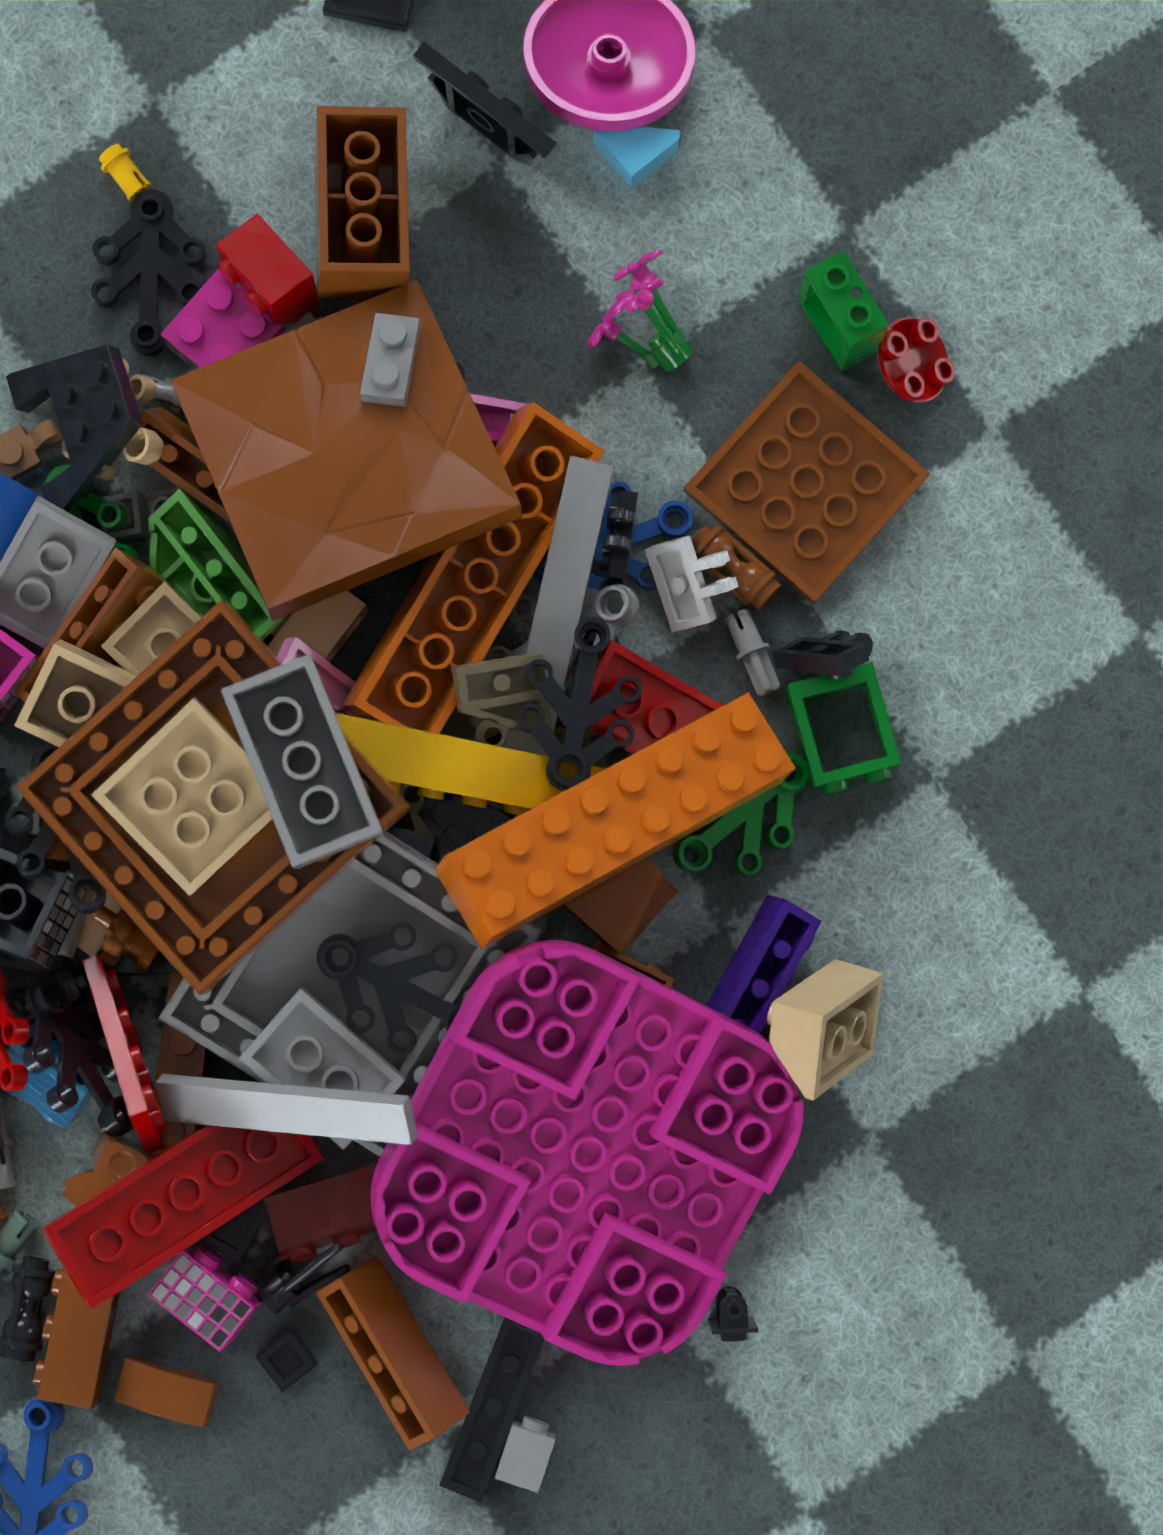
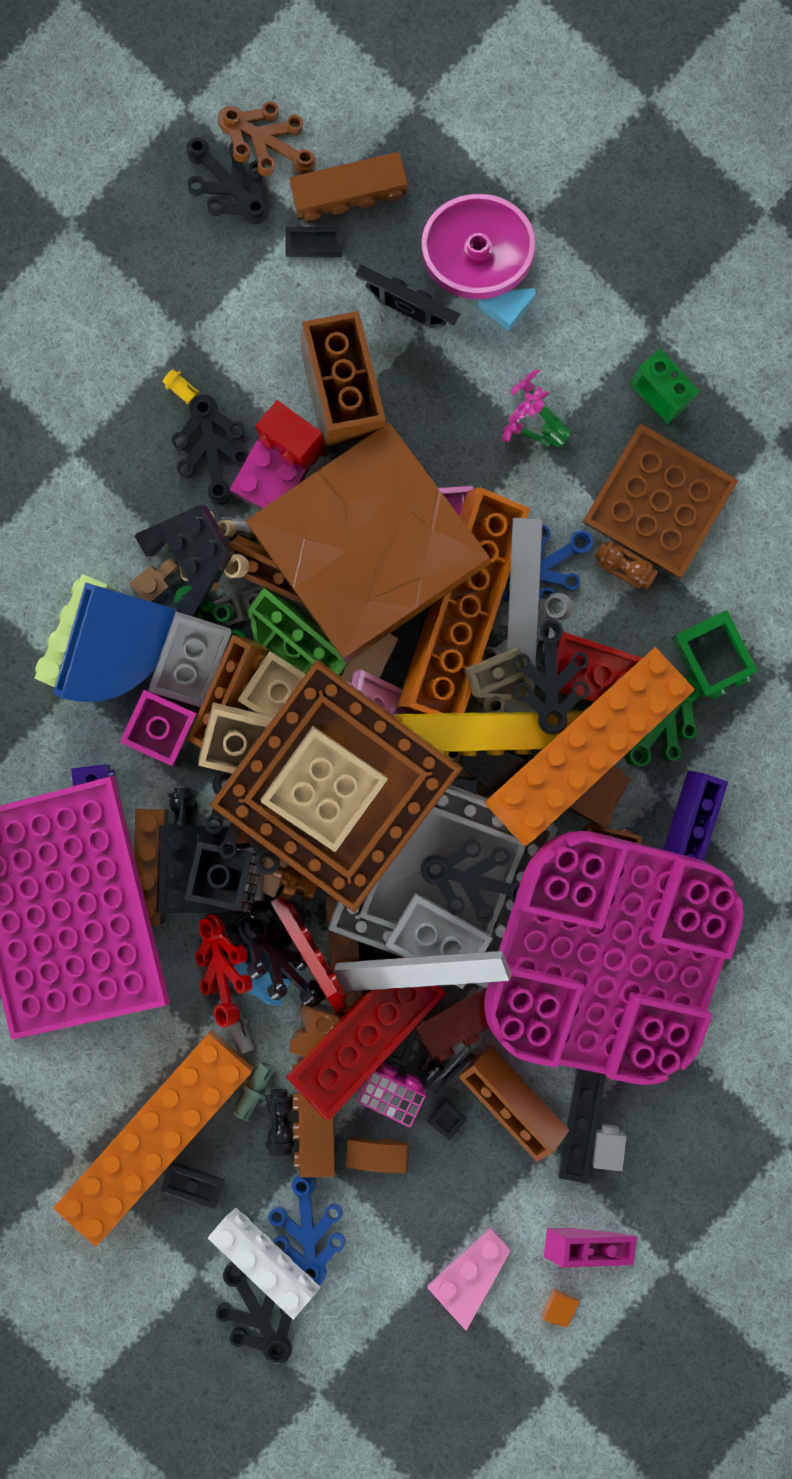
camera: 10 degrees left, 5 degrees up
(302, 761) = (393, 756): light grey brick -> none
(390, 359) = (384, 479): light grey plate -> none
(617, 546) = (551, 569): black hinge -> none
(682, 582) = (595, 584): white hinge -> none
(732, 1316) = (720, 1039): black hinge -> none
(753, 653) = (648, 618): light grey axle -> none
(826, 1025) = (744, 846): tan slope -> none
(831, 655) = (700, 610): black hinge -> none
(914, 359) = (714, 408): red dish -> none

